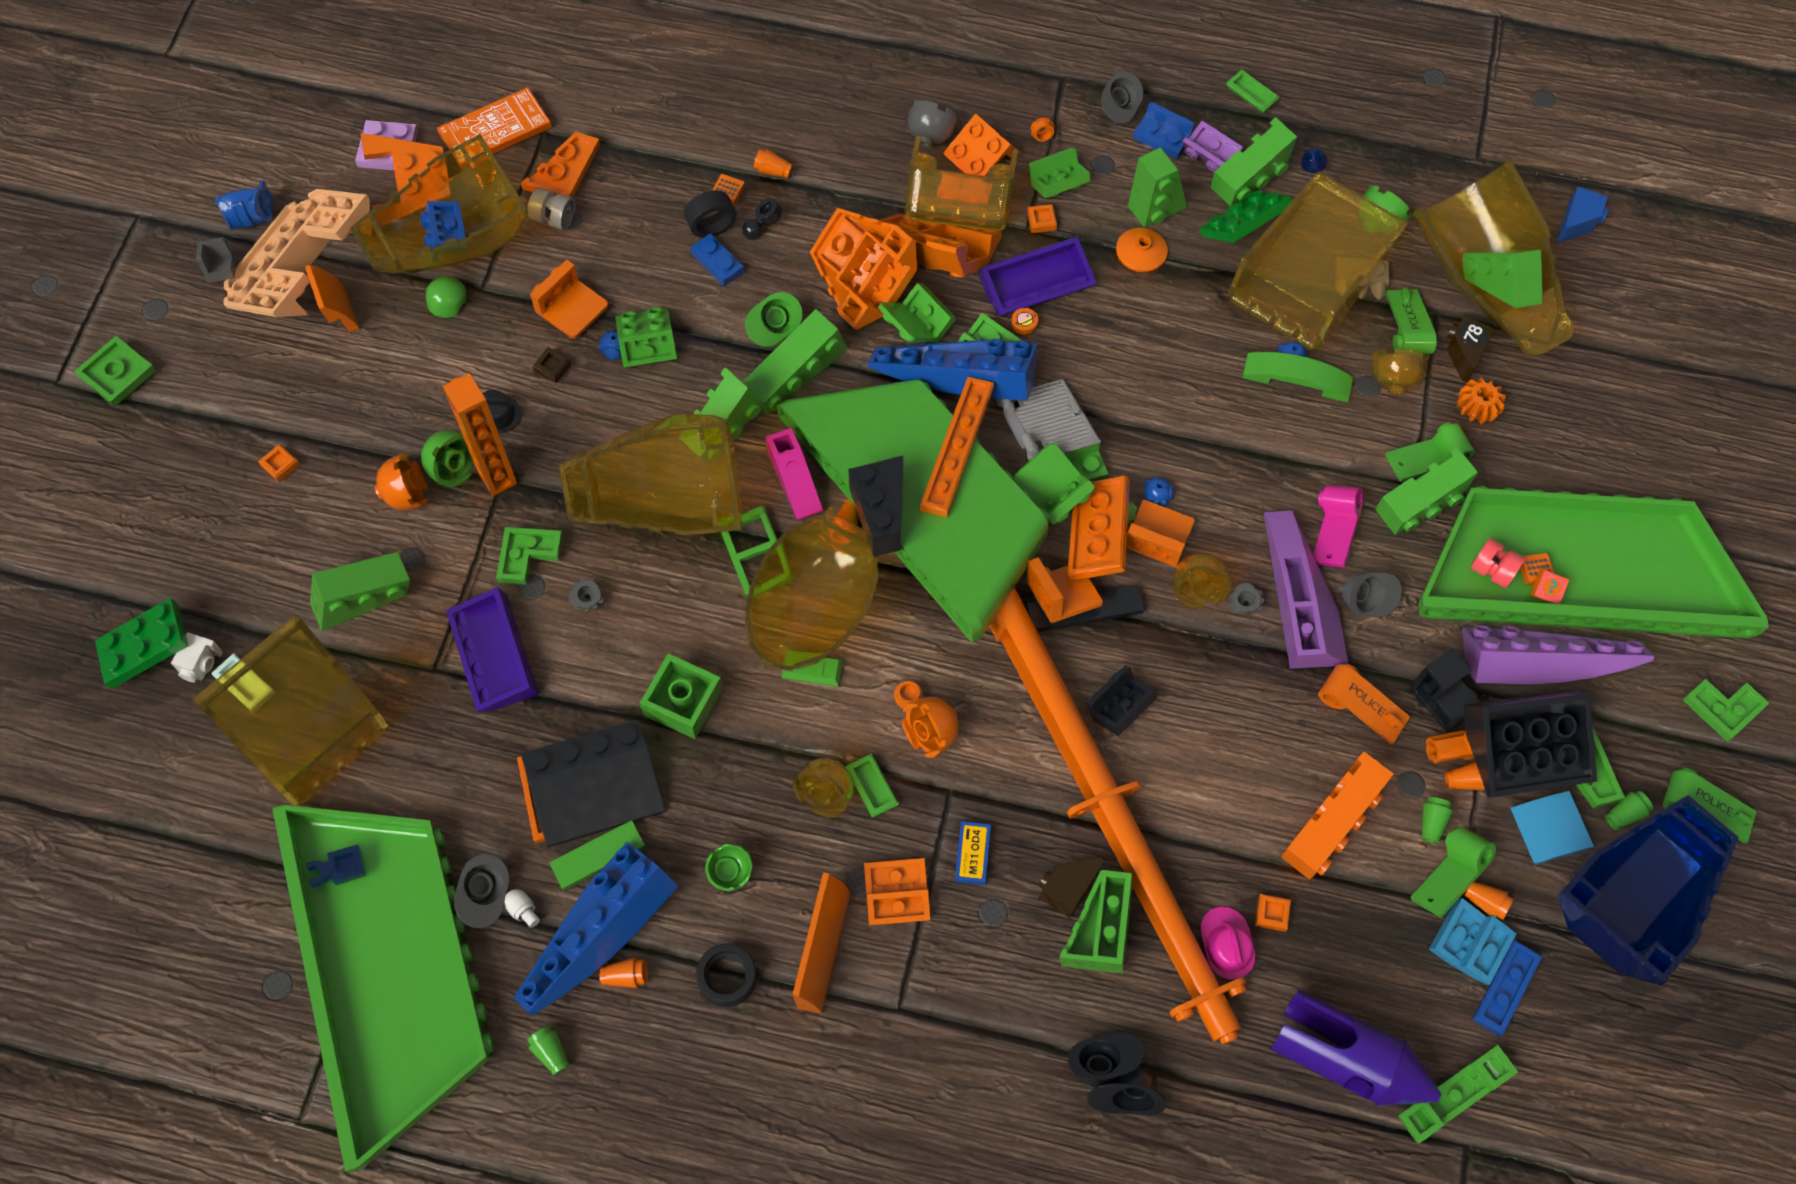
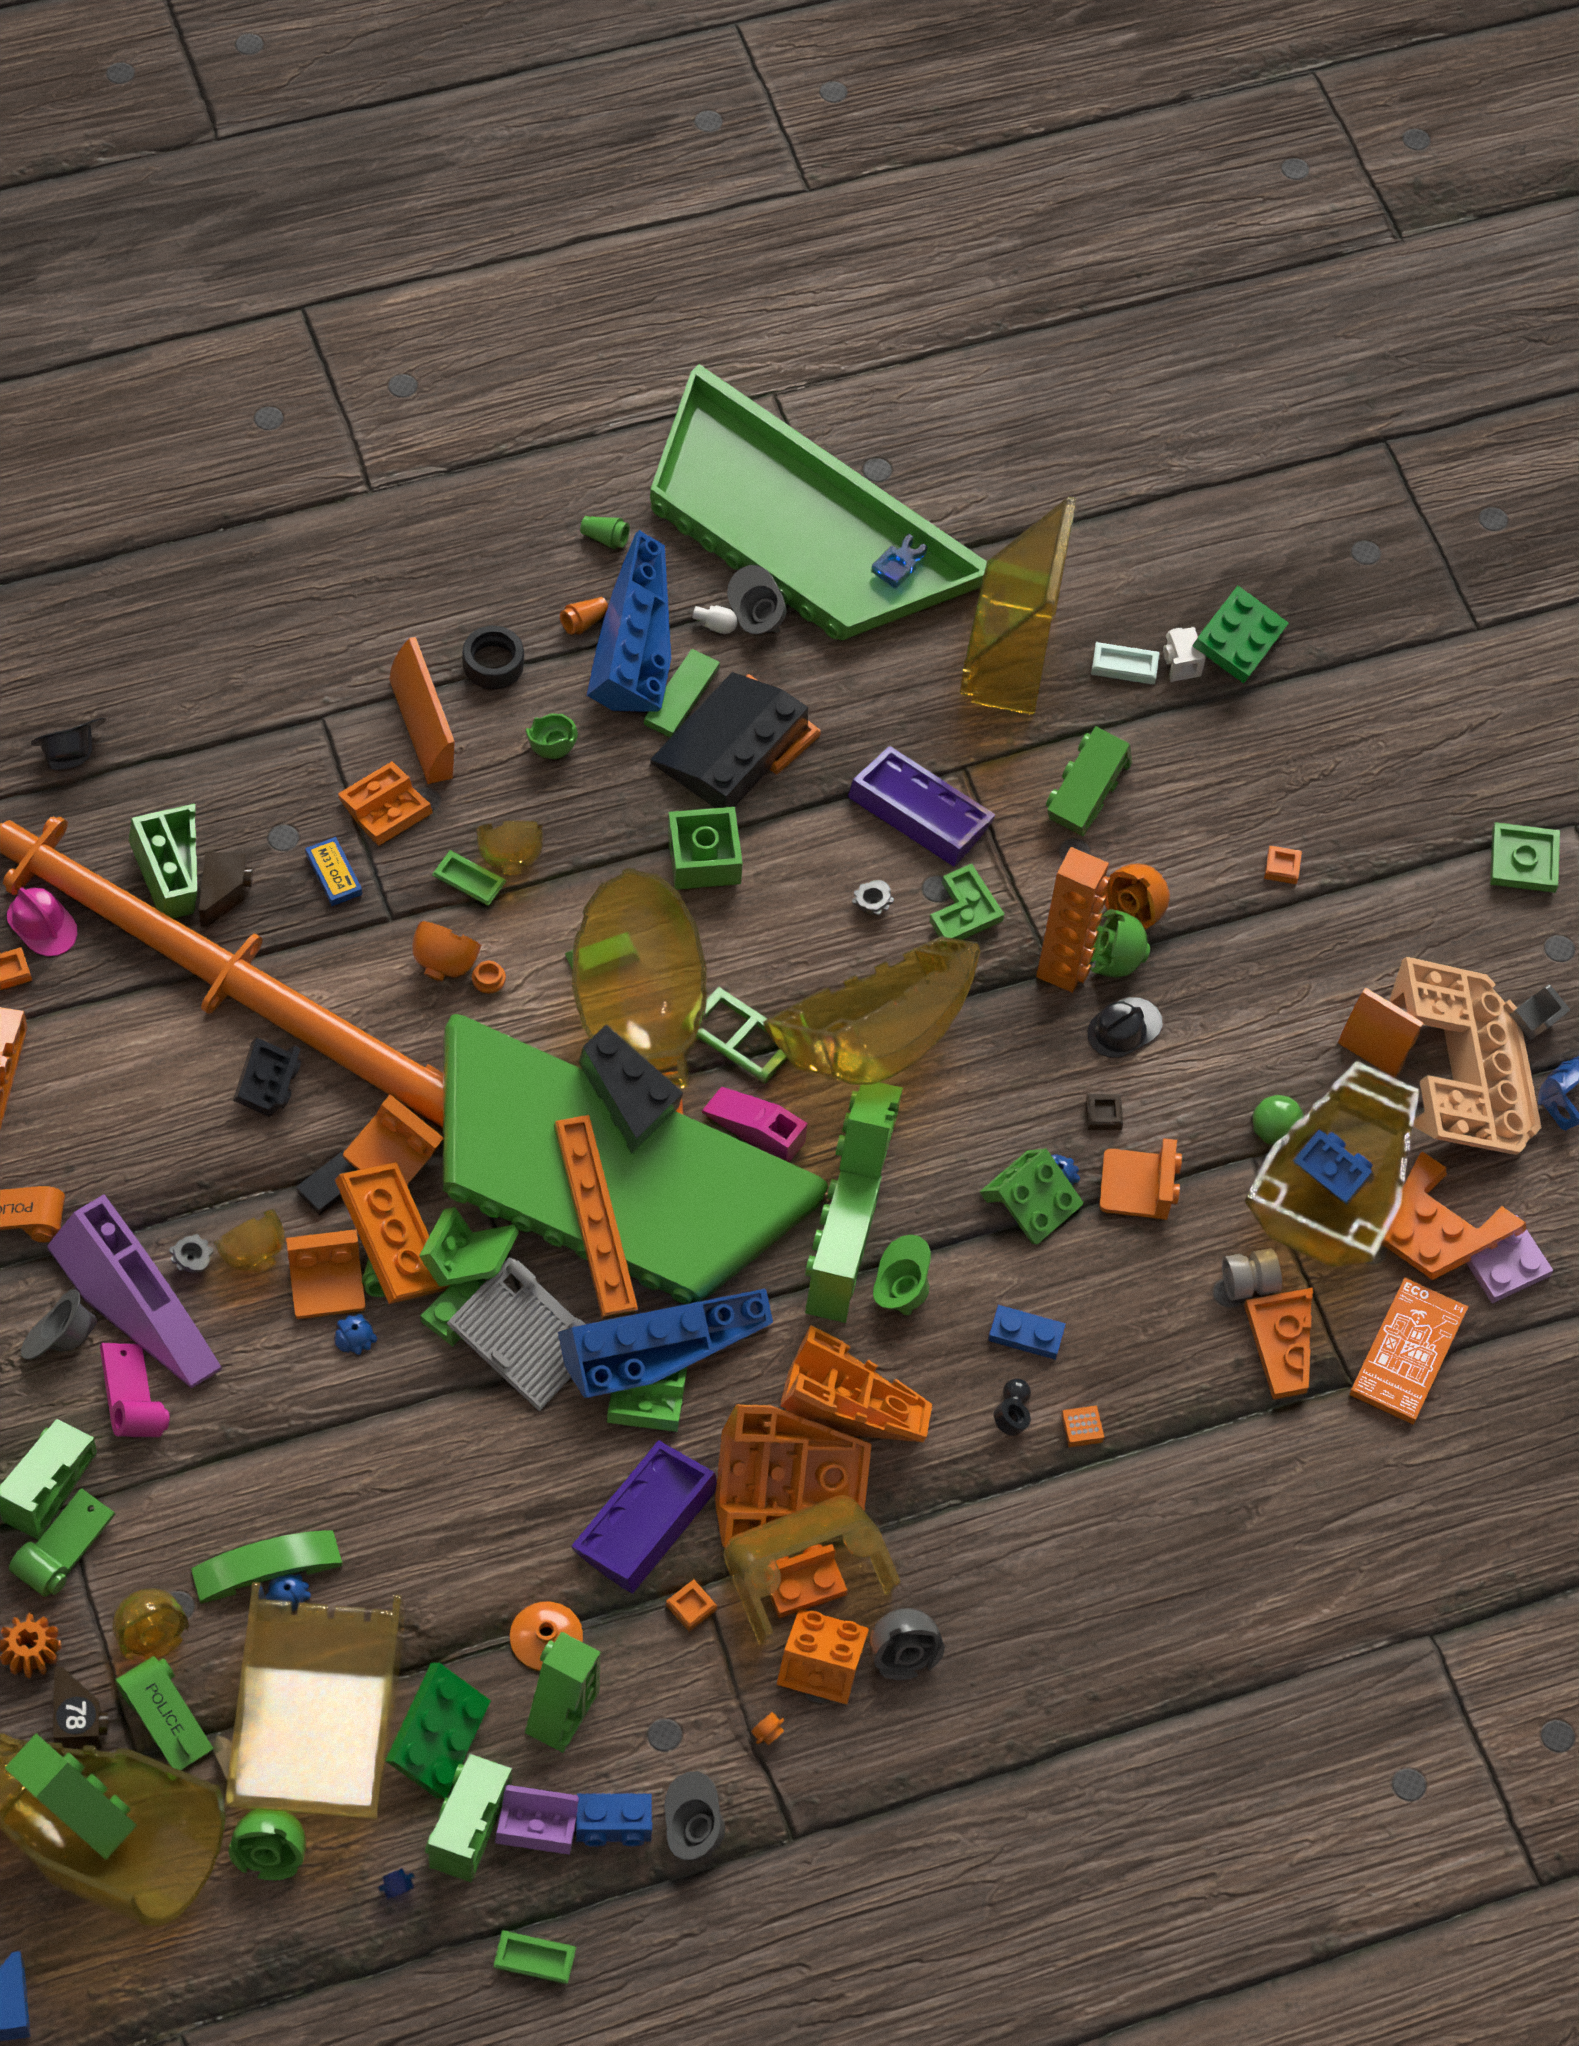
camera: 145 degrees right, 5 degrees down
(705, 204) = (1068, 1361): black tyre -> none
(772, 164) = (1055, 1483): orange cone -> none
(919, 316) = (749, 1364): bright green bracket -> none
(1024, 321) = (626, 1453): orange tile -> none
(1058, 173) = (704, 1667): bright green bracket -> none
(1106, 1058) = (106, 752): black piece -> none

